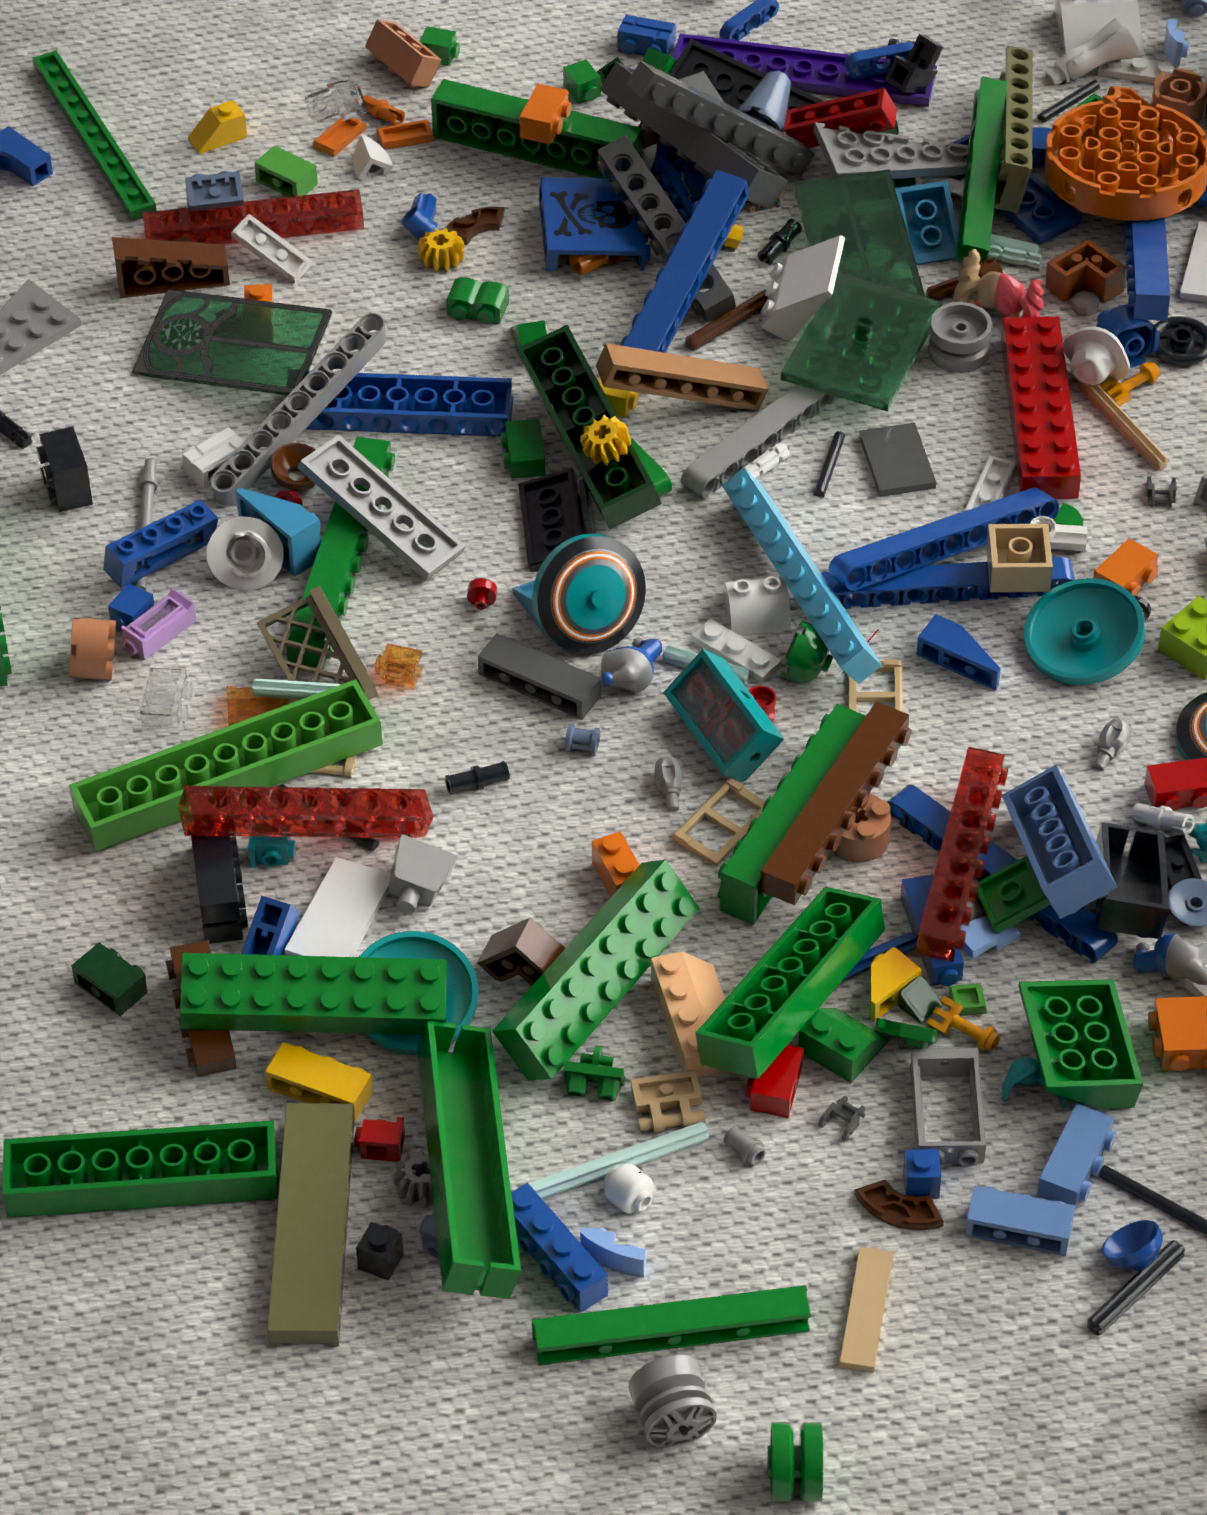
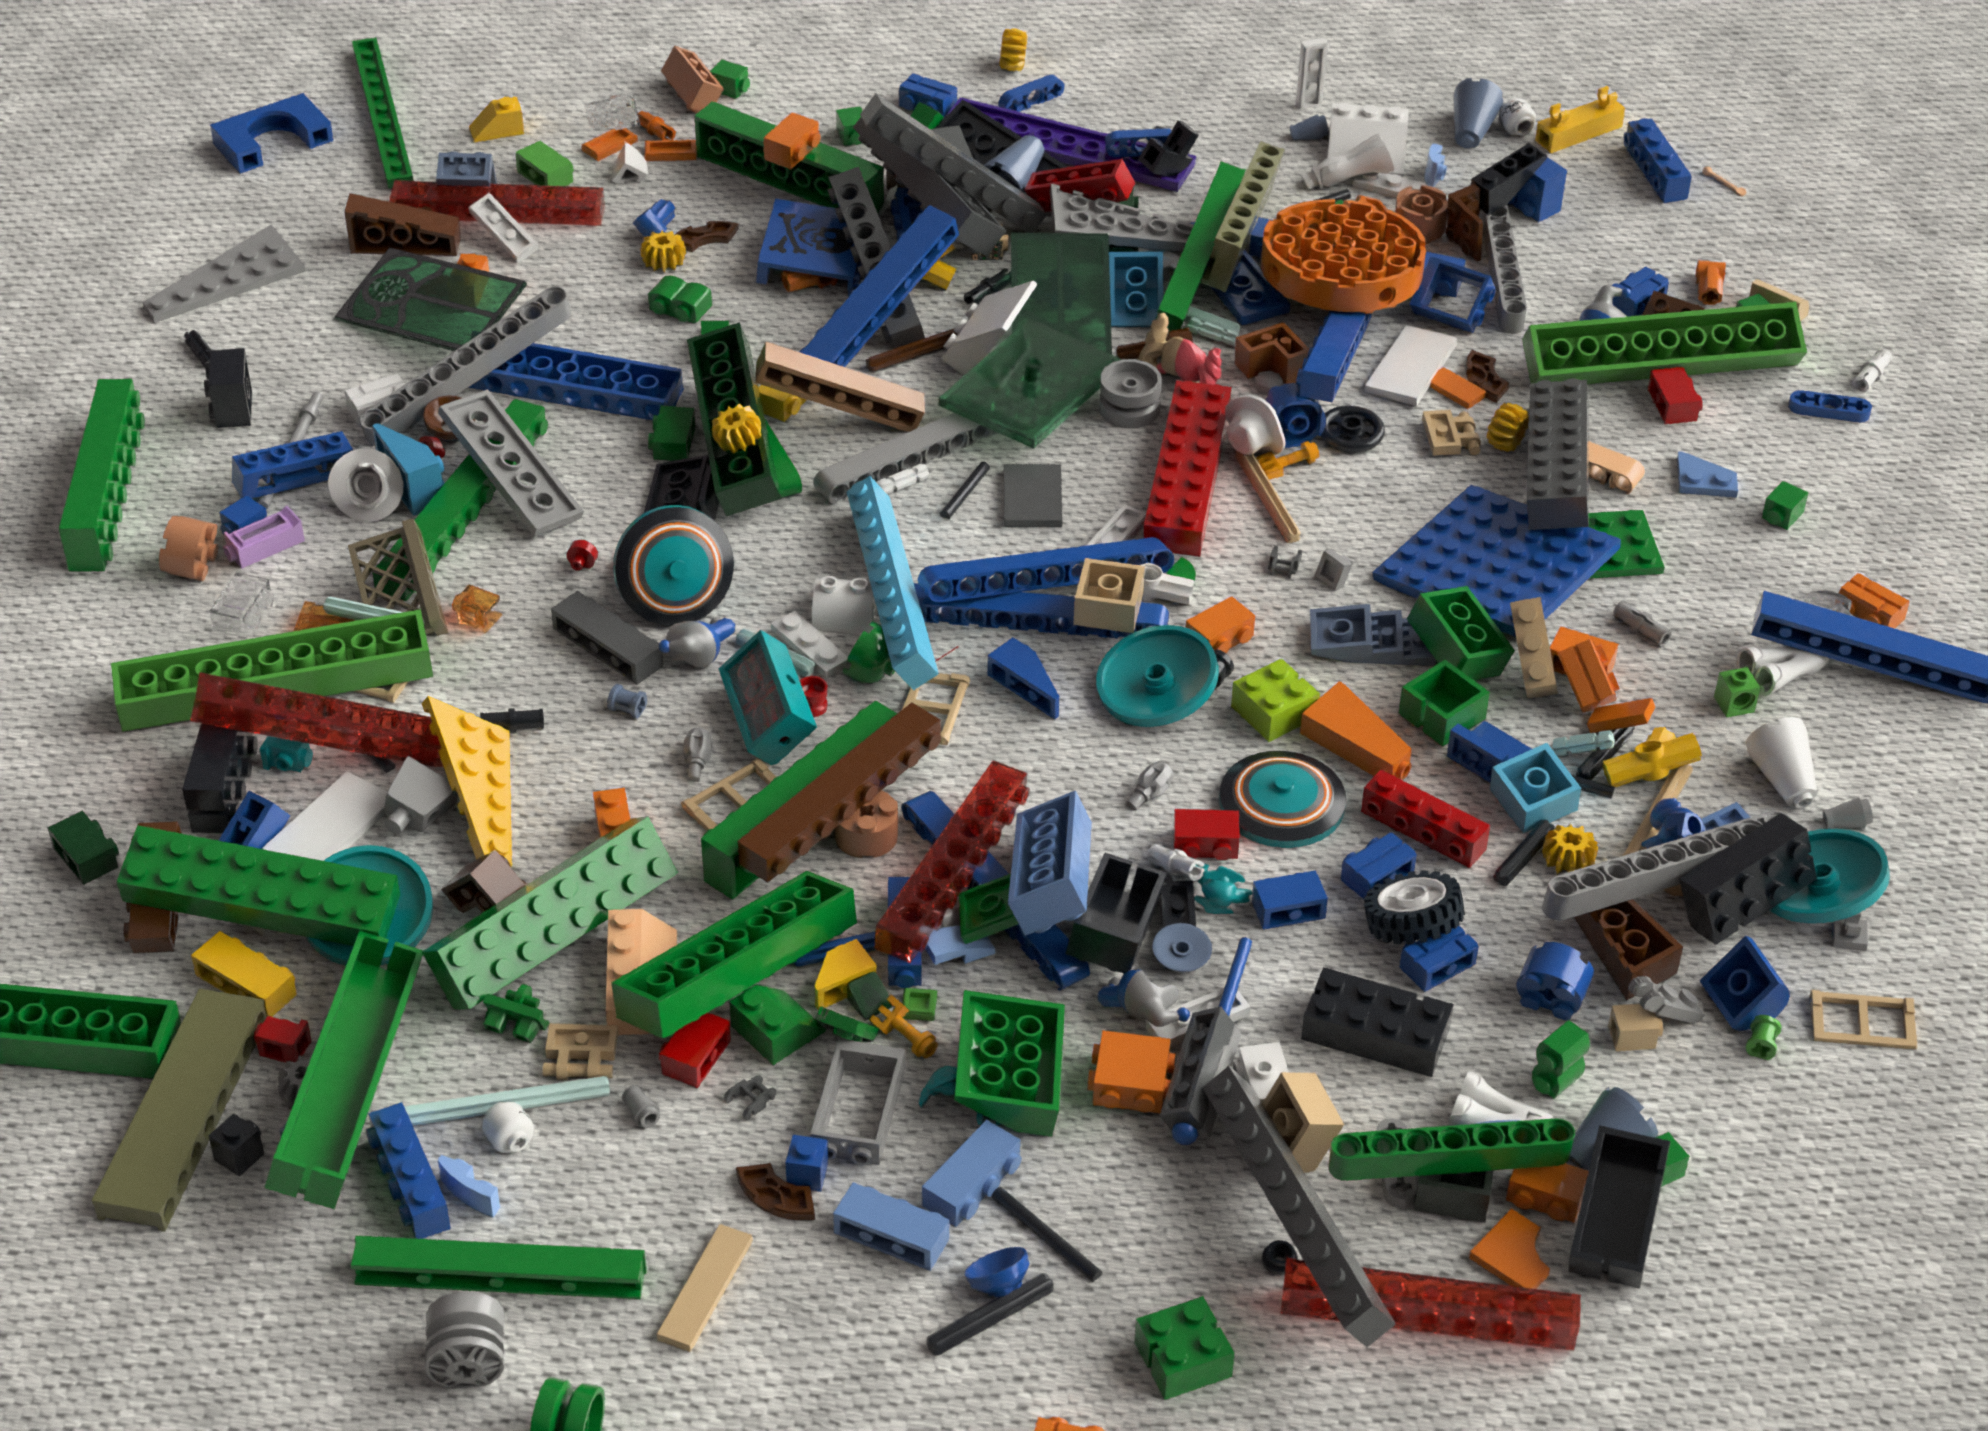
camera: 10 degrees right, 5 degrees down
(469, 836) = (479, 770): none -> yellow wing
(1039, 17) = (1311, 128): none -> sand blue cone

